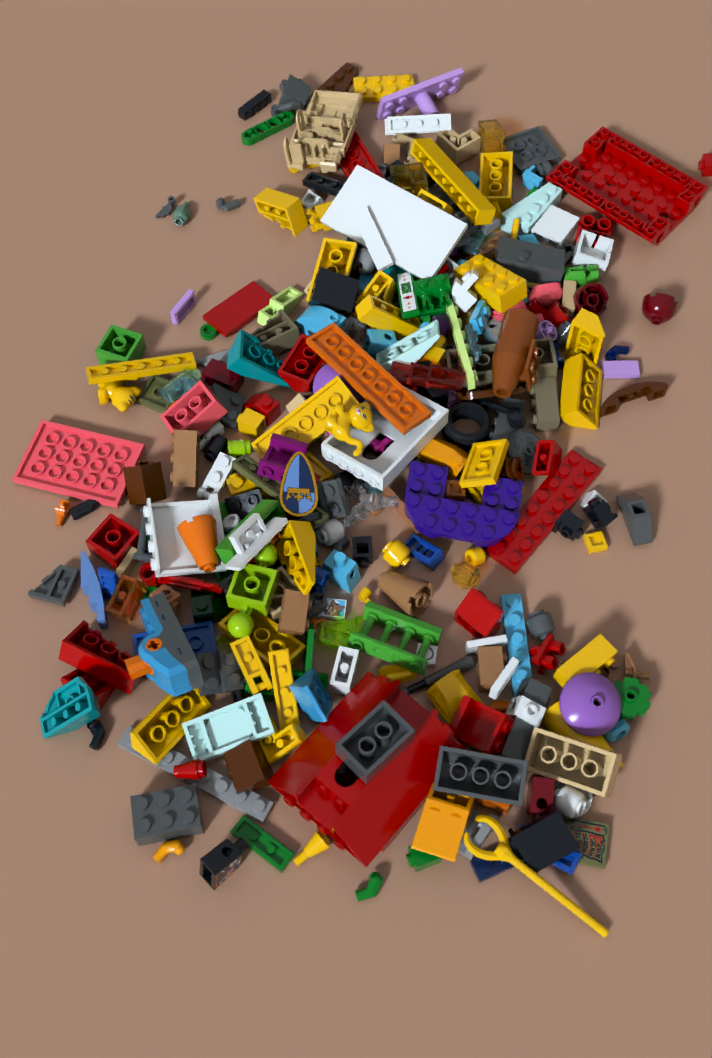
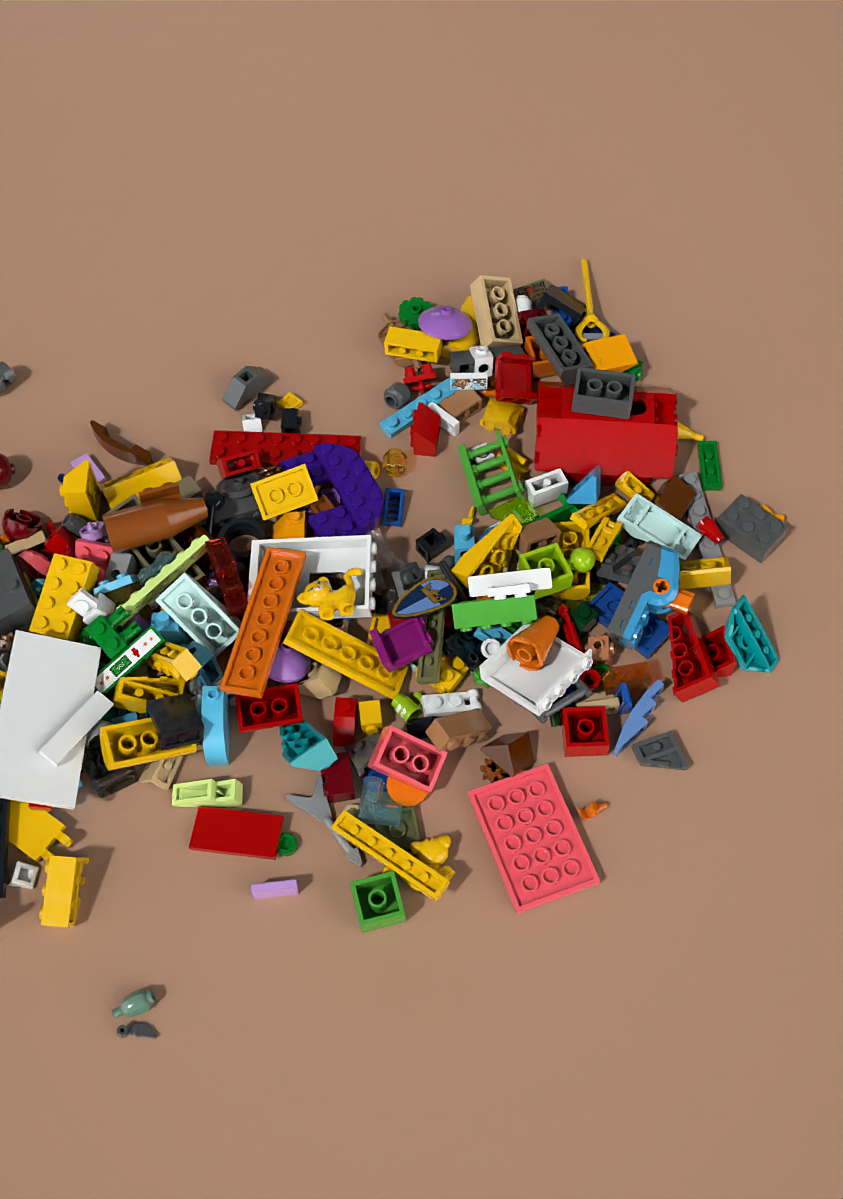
camera: 125 degrees left, 0 degrees up
(84, 508) = (573, 795): black piece -> none
(222, 861) = (747, 470): black torso -> none
(227, 206) = (90, 963): dark grey arm -> none
(278, 333) = (256, 765): dark tan wedge -> none
(372, 888) = (679, 387): green arm -> none
(396, 553) = (413, 519): yellow head -> none
(407, 592) = (444, 489): medium nougat cone -> none
(462, 664) = (488, 434): dark grey piece -> none

